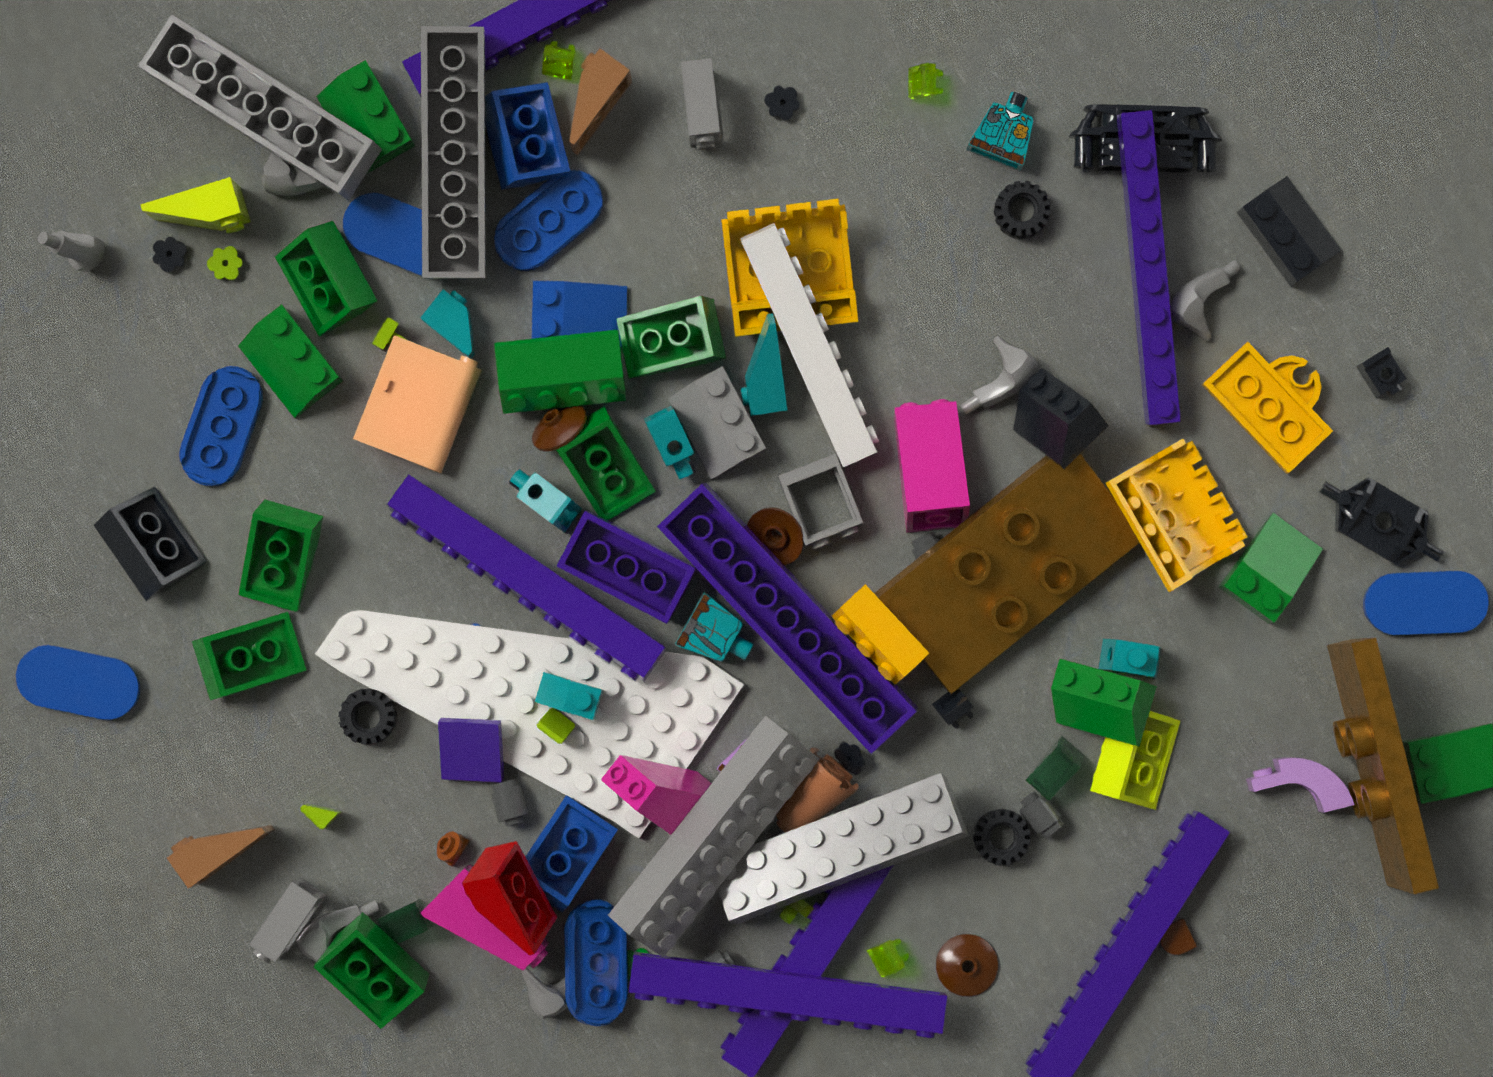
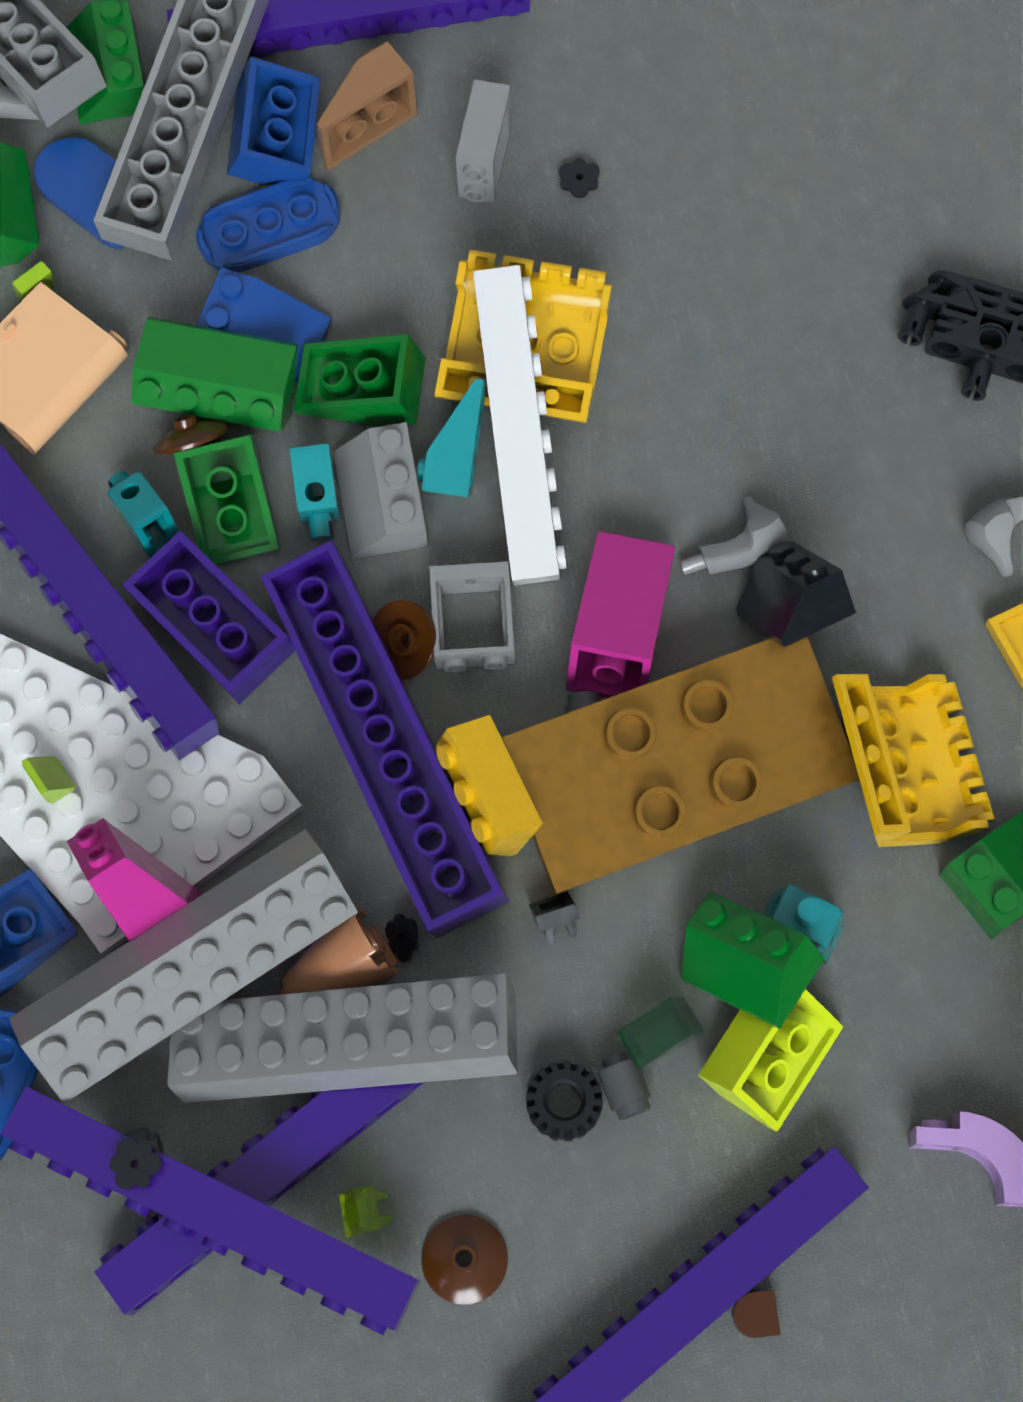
camera: 20 degrees right, 15 degrees down
(451, 321) = (114, 291): teal slope -> none
(558, 61) = (337, 61): clear neon green tile -> none
(569, 696) = (82, 747): teal slope -> none
(713, 632) = (285, 729): teal torso -> none
(728, 992) = (129, 1152): none -> black plant
(792, 910) = (261, 1107): clear neon green tile -> none
(923, 81) = (748, 198): clear neon green tile -> none
(1004, 133) = (824, 276): torso -> none
(1022, 228) = (828, 346): black tyre -> none
(1148, 267) = (957, 464): dark purple brick -> none

